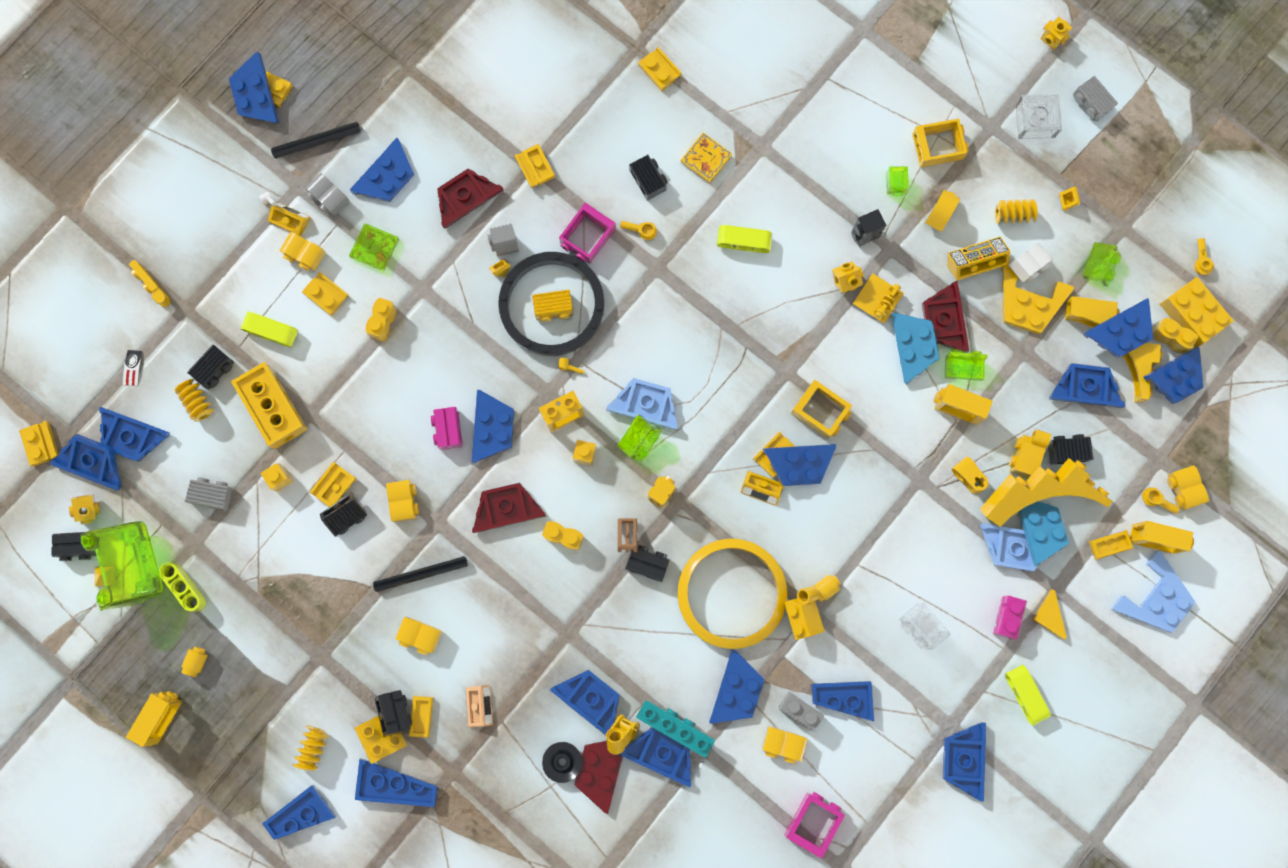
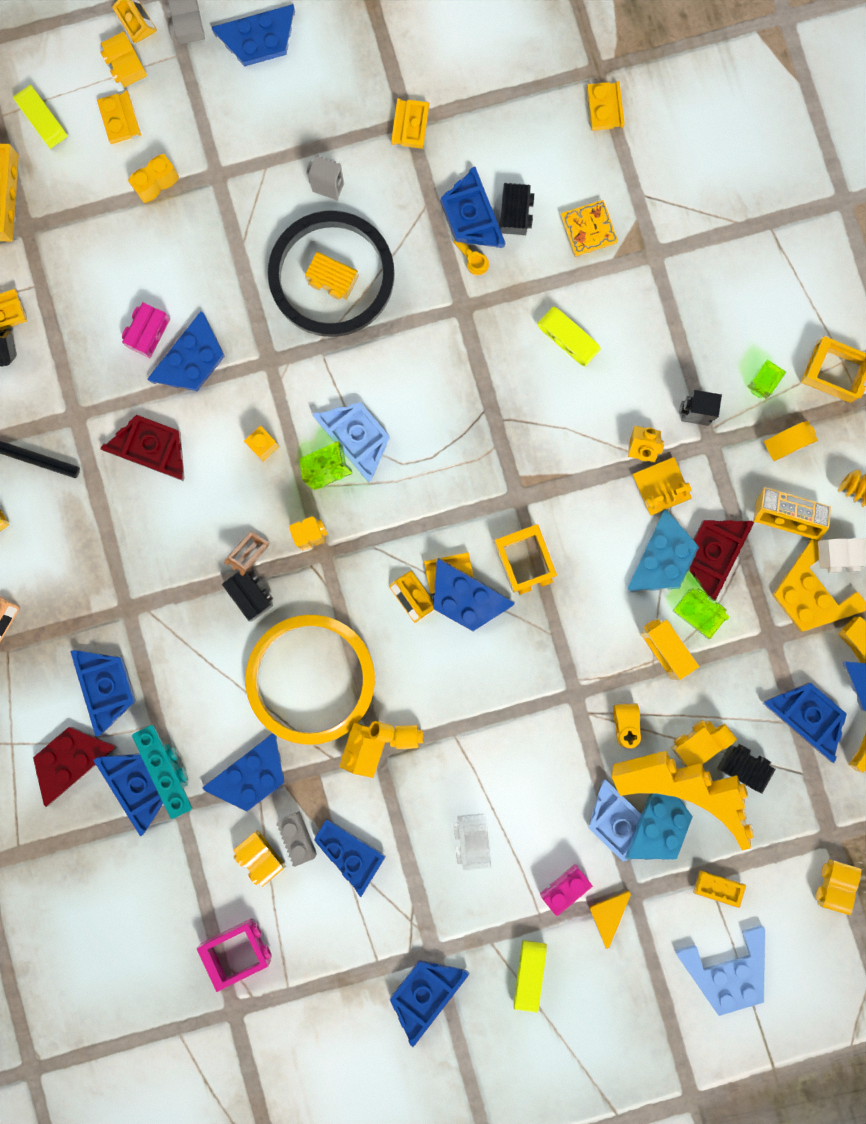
camera: 35 degrees right, 5 degrees up
(374, 247) = (197, 102): clear neon green tile -> none
(401, 501) = (54, 371): yellow brick -> none
(464, 195) = (320, 107): dark red wing -> none
(500, 268) = (305, 205): yellow slope -> none
(558, 534) = (183, 507): yellow brick -> none
(558, 772) = (24, 728): black dish -> none
(561, 415) = (271, 390): yellow window -> none
(563, 364) = (302, 343): yellow hand -> none
(596, 217) = (425, 202): dark pink window -> none
(619, 199) = (471, 213): none -> blue wing
(621, 734) = (112, 740): yellow piece -> none
(1153, 497) = (797, 871): yellow plate -> none
(1161, 537) = (774, 917): yellow window -> none

